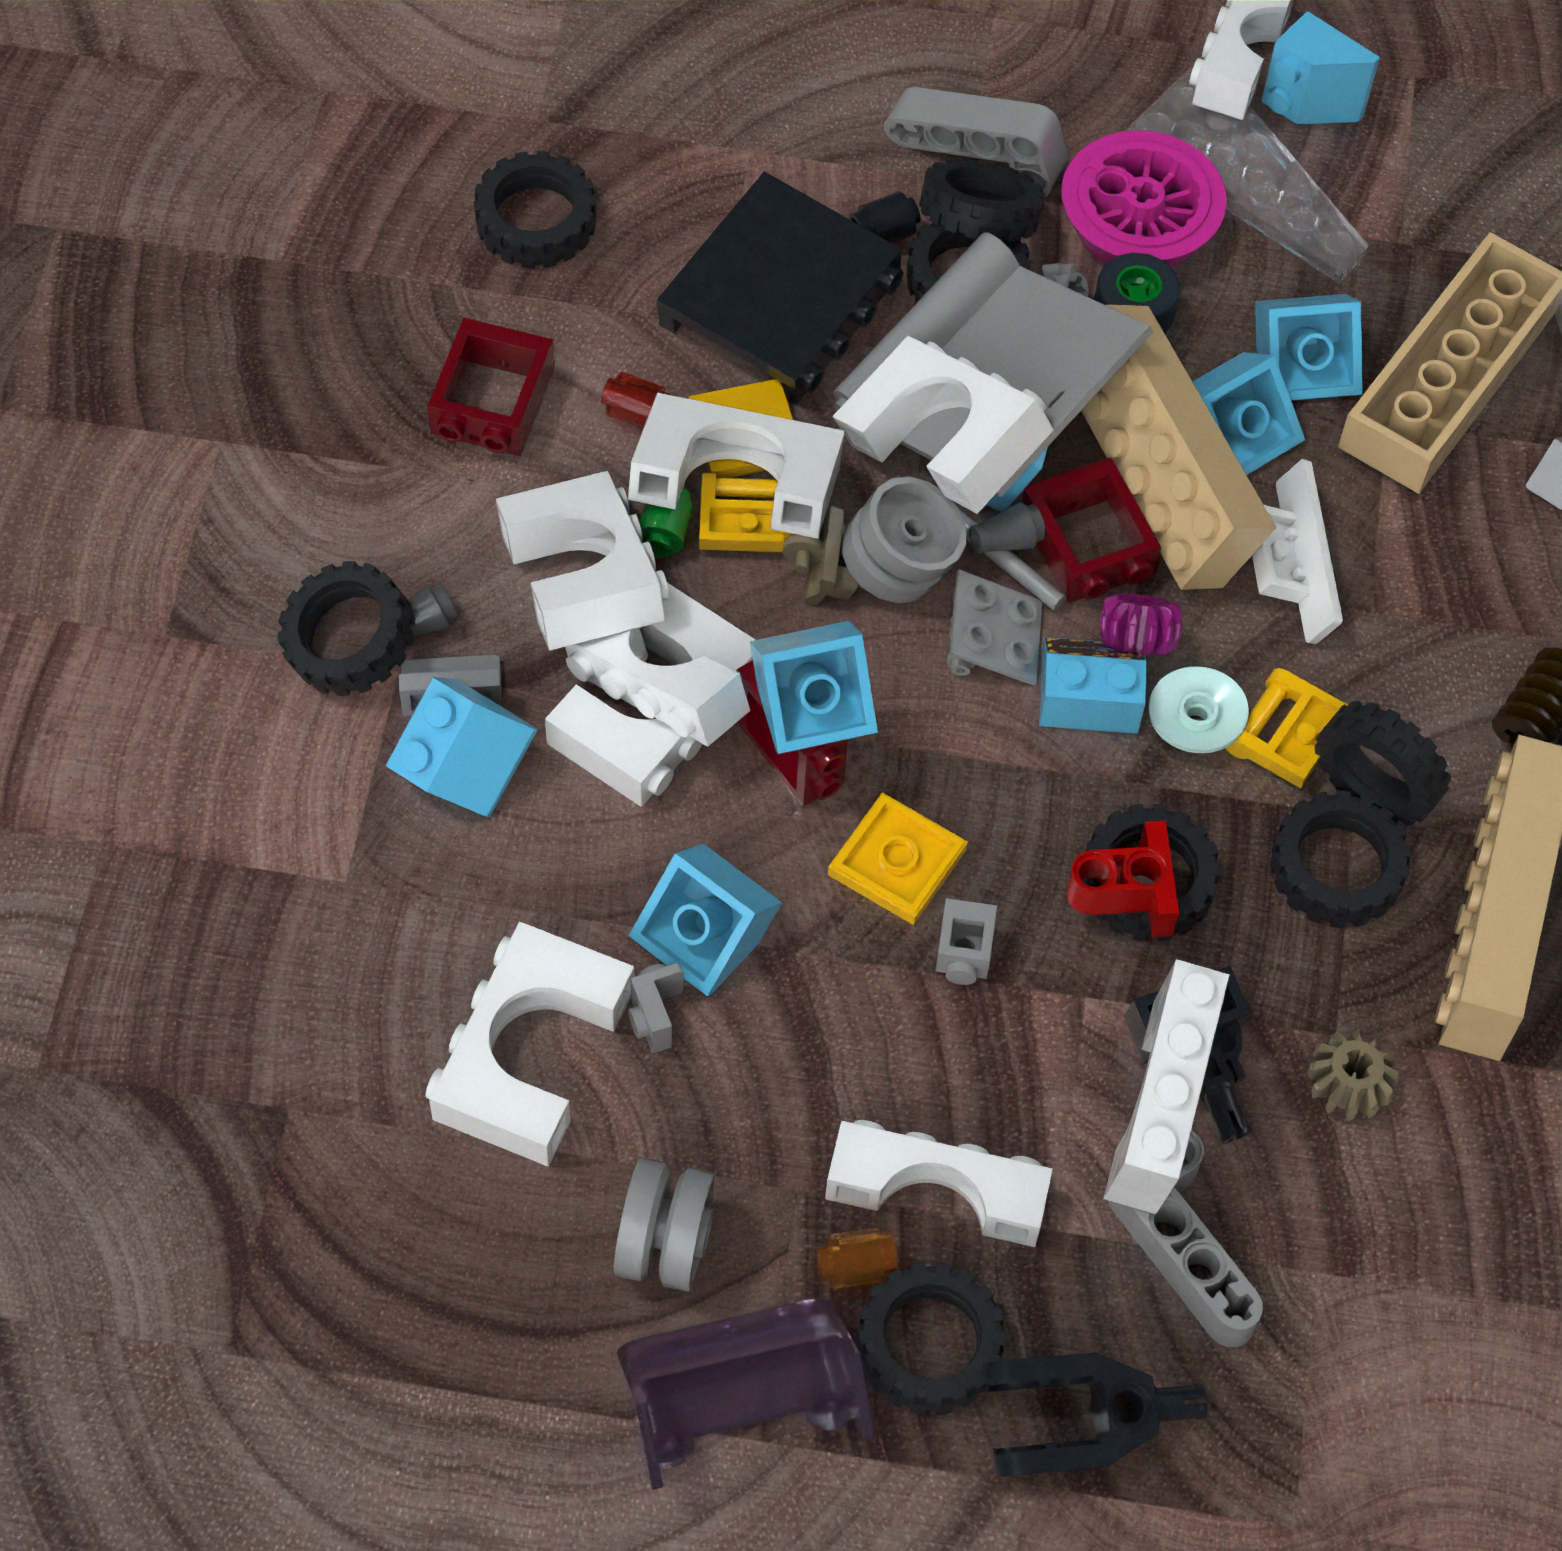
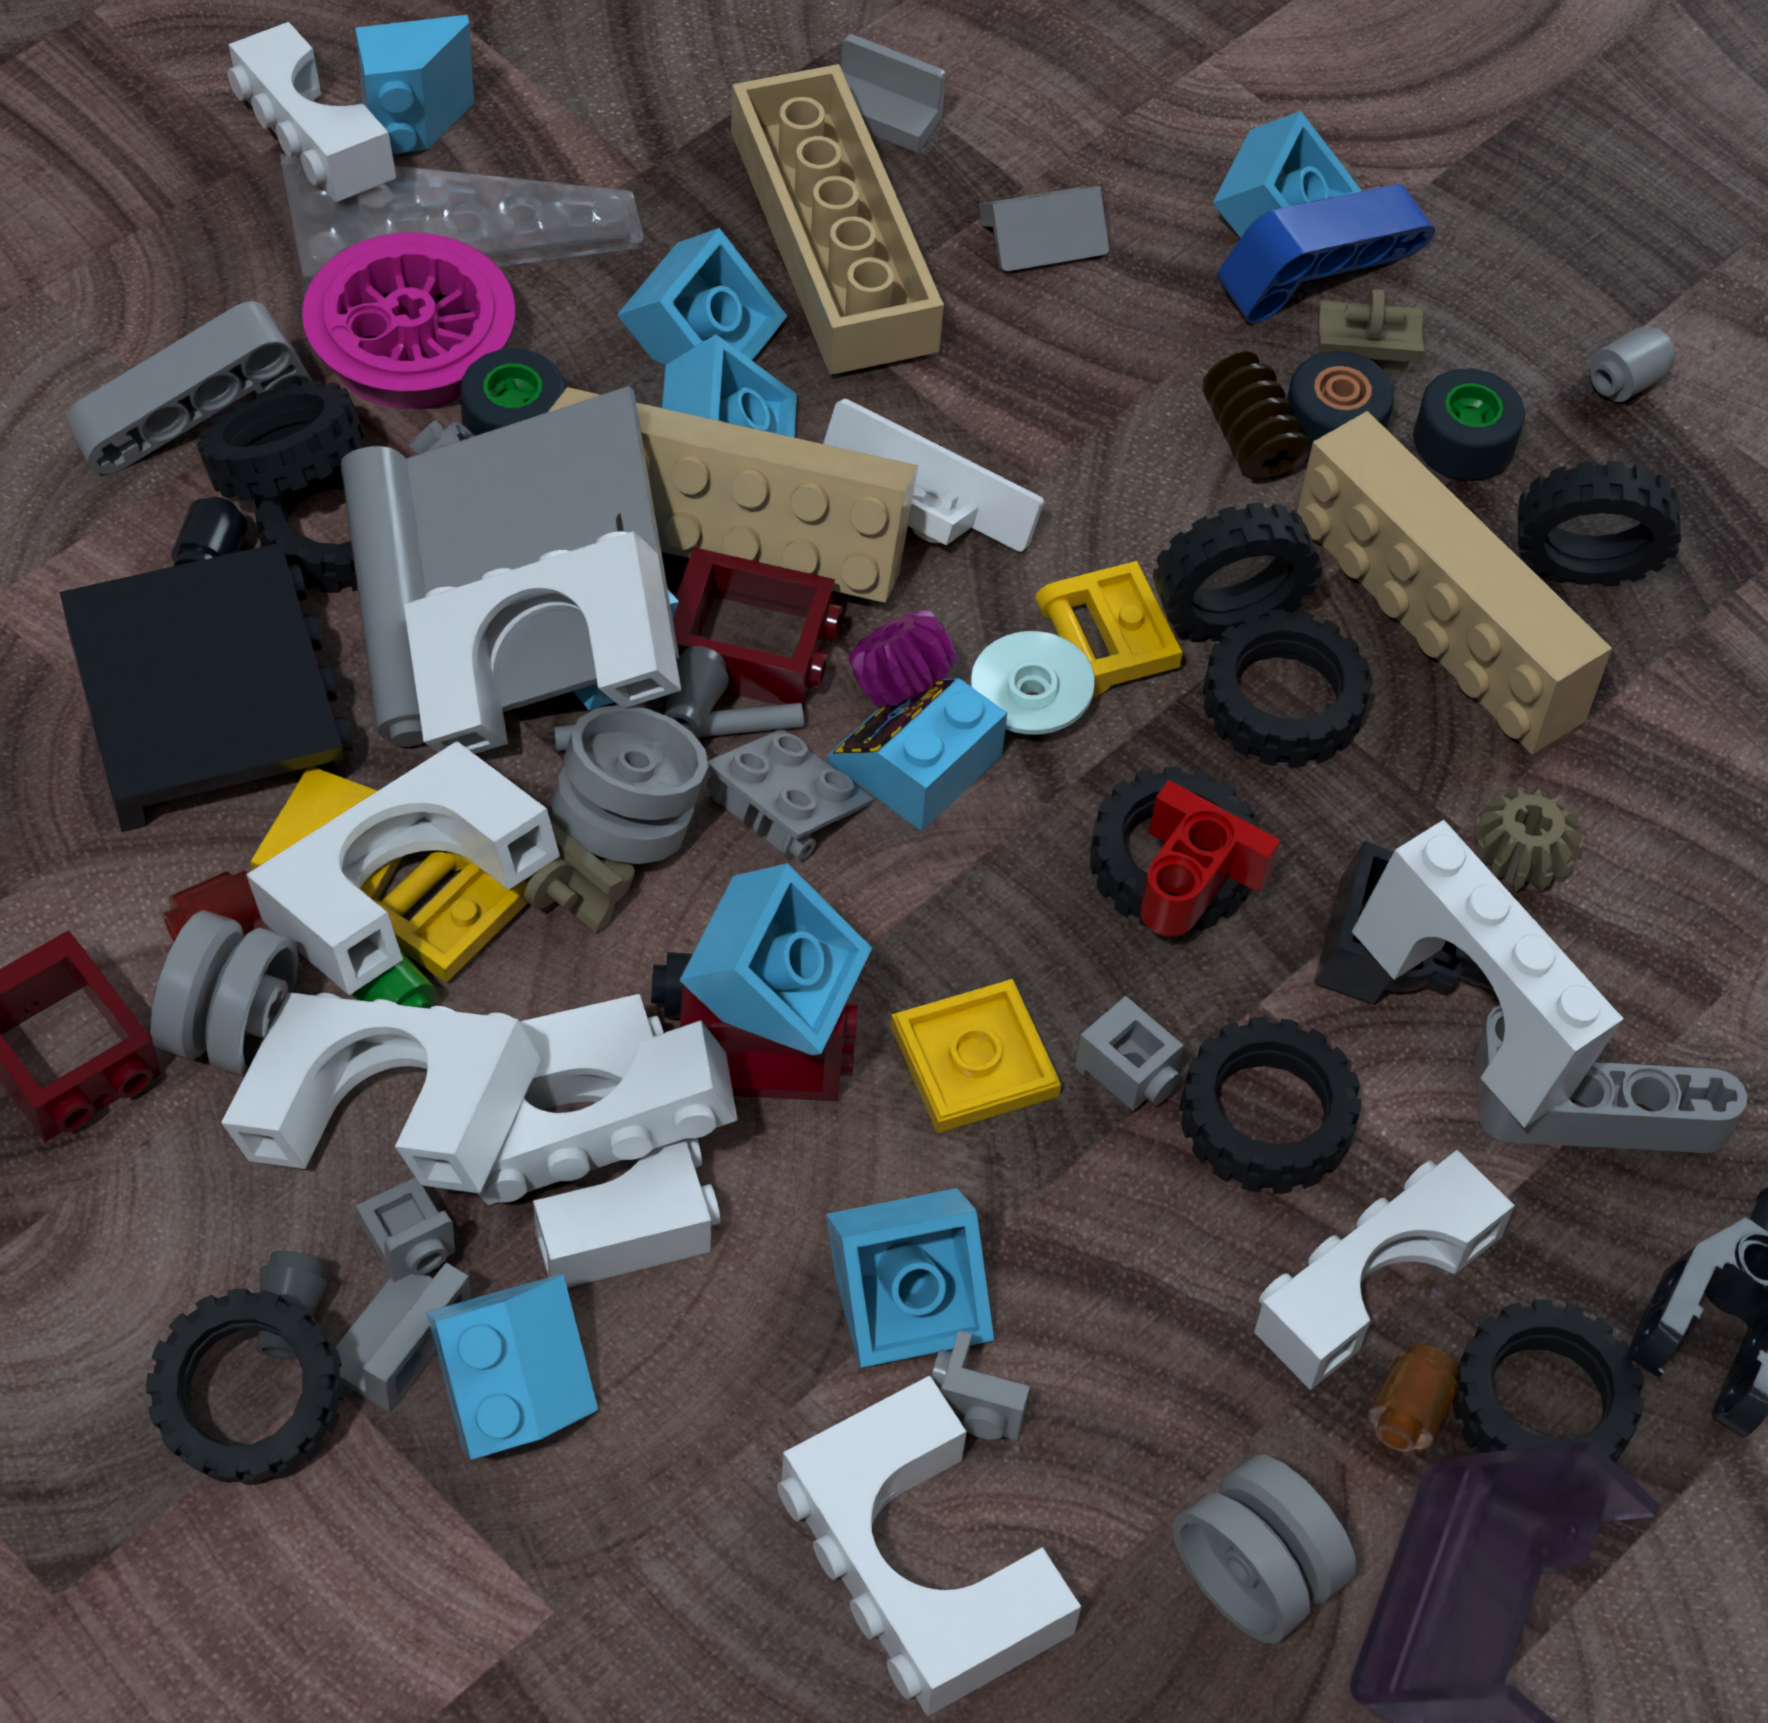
camera: 55 degrees left, 5 degrees down
(512, 640) = (407, 1230): none -> light grey bracket
(575, 434) = (221, 991): none -> light grey wheel
(1020, 998) = (1282, 1048): none -> black tyre

